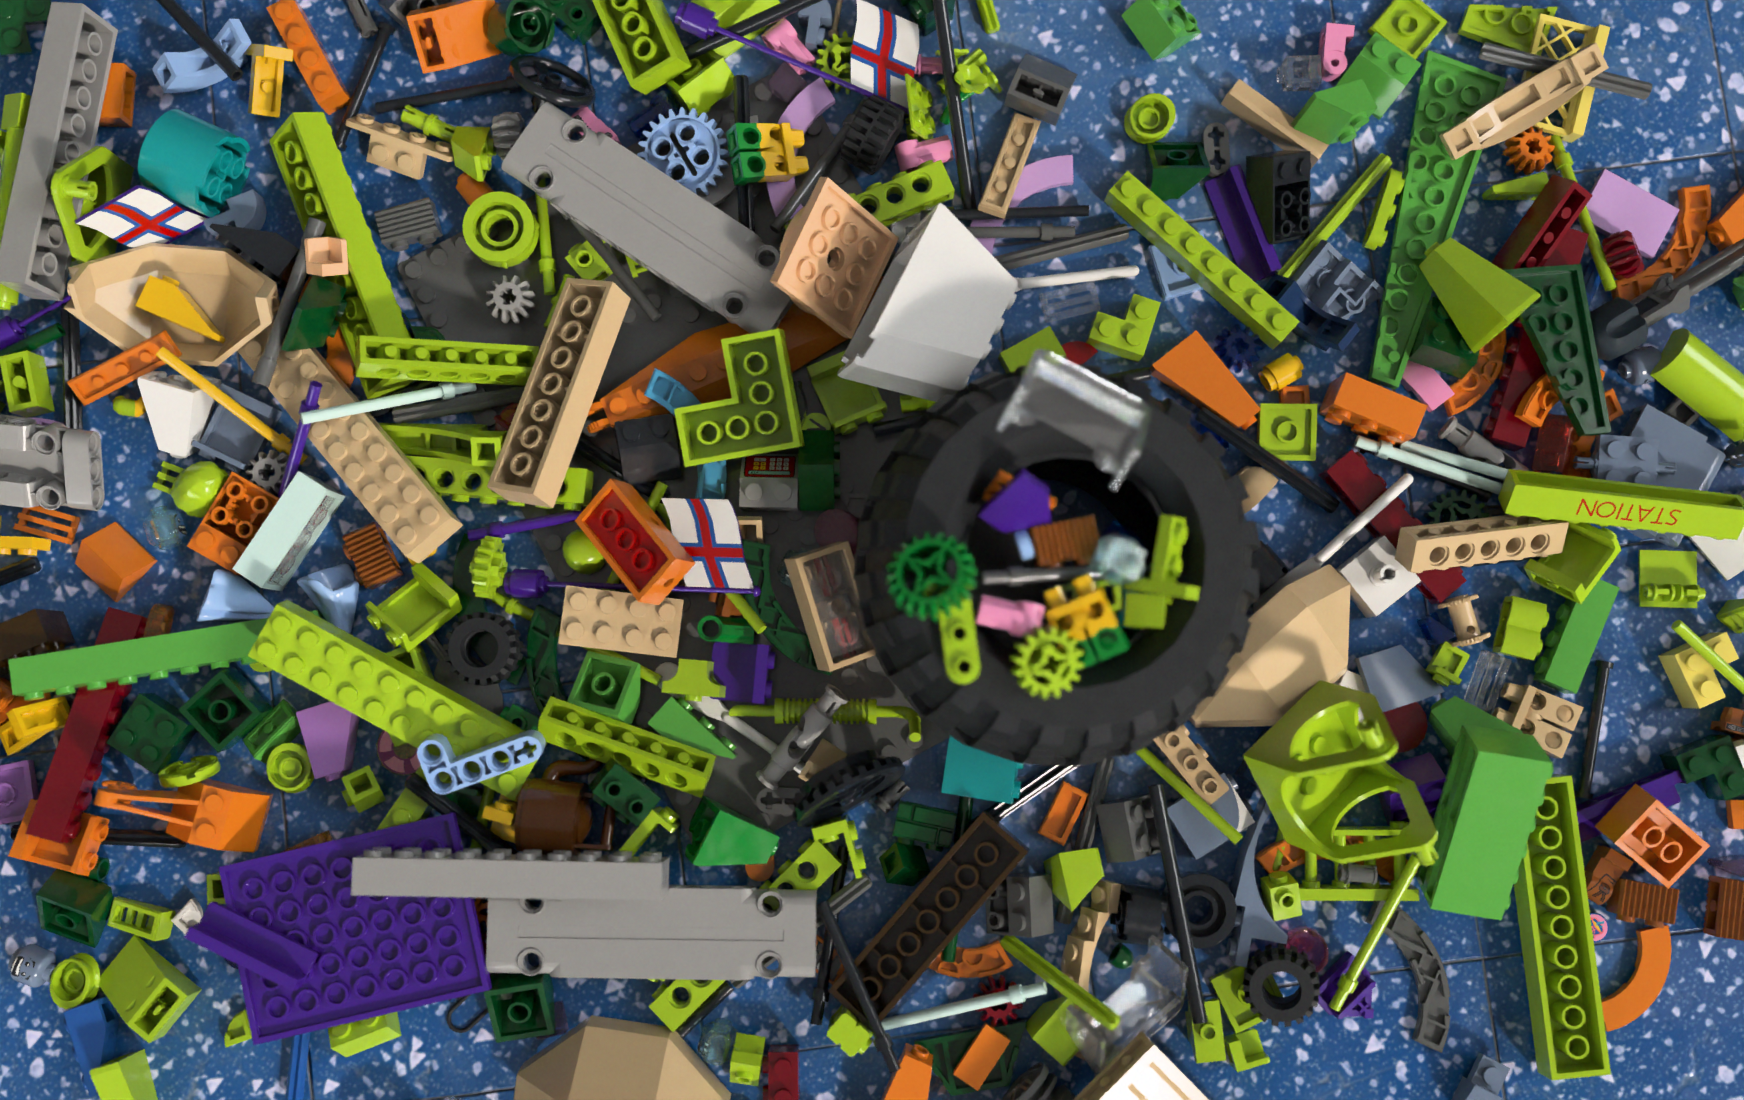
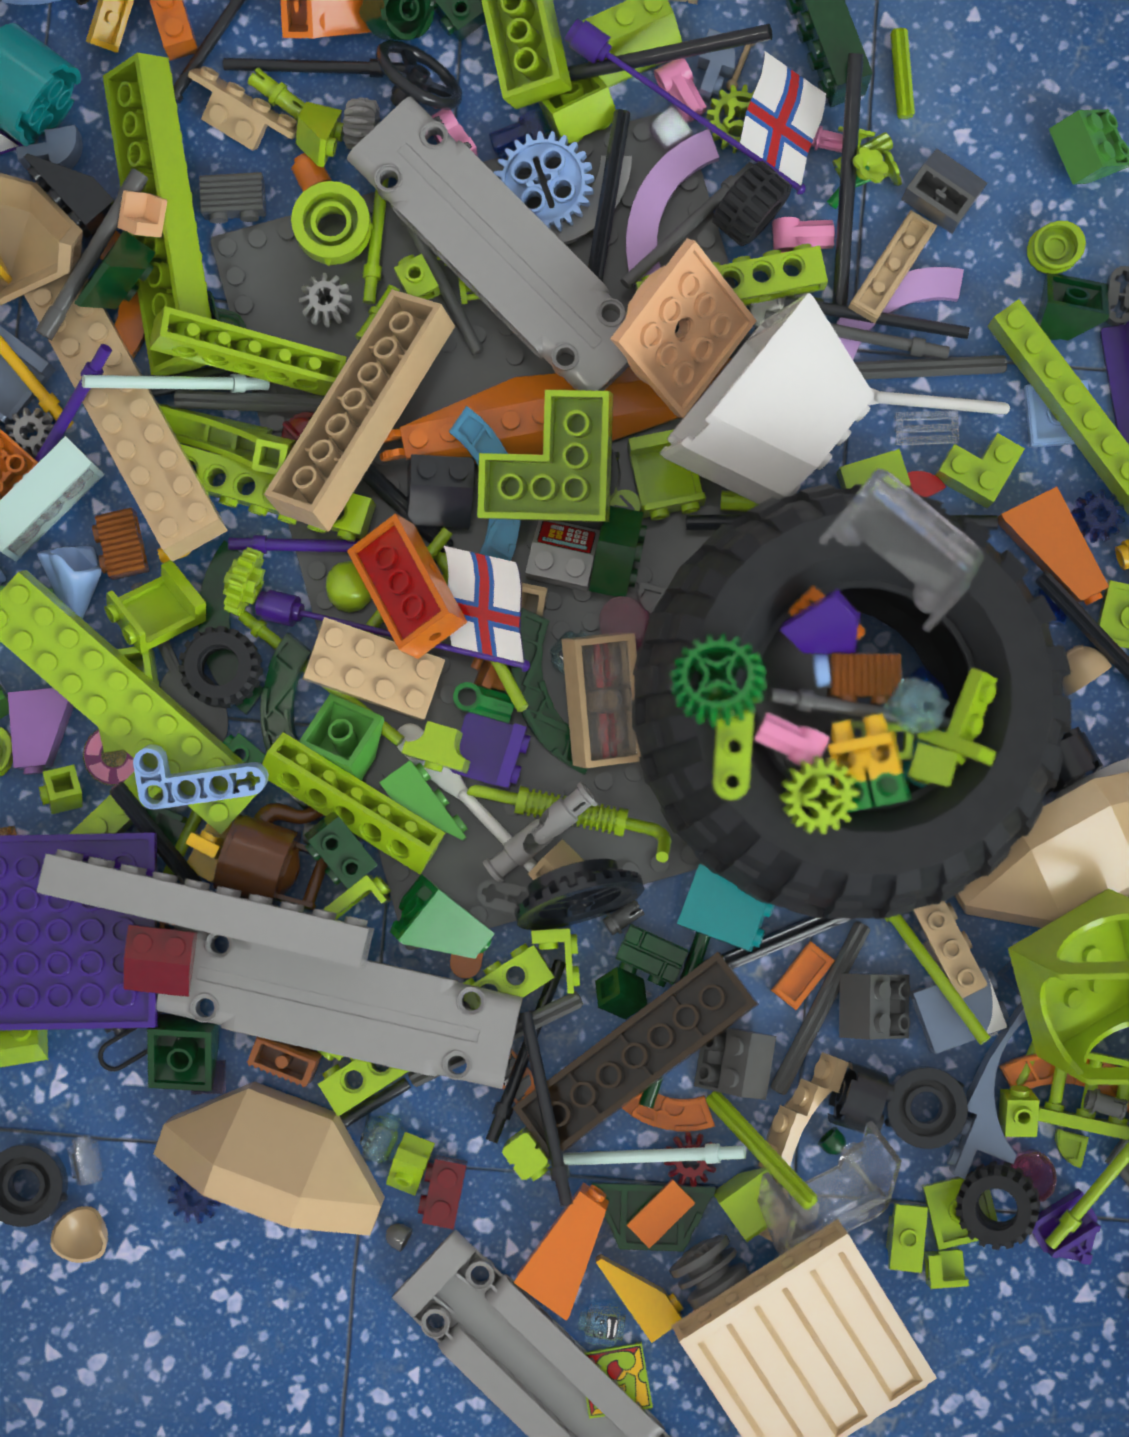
camera: 15 degrees right, 0 degrees up
(479, 928) = (159, 960): none -> dark red slope
(615, 993) = (285, 1060): none -> dark orange brick
(765, 152) = (632, 199): hips -> none
(919, 119) = (806, 199): lime hinge -> none
(1074, 874) = (801, 1040): lime slope -> none
(1177, 902) = (905, 1093): black piece -> none
(1333, 914) = (1071, 1146): none -> lime tile

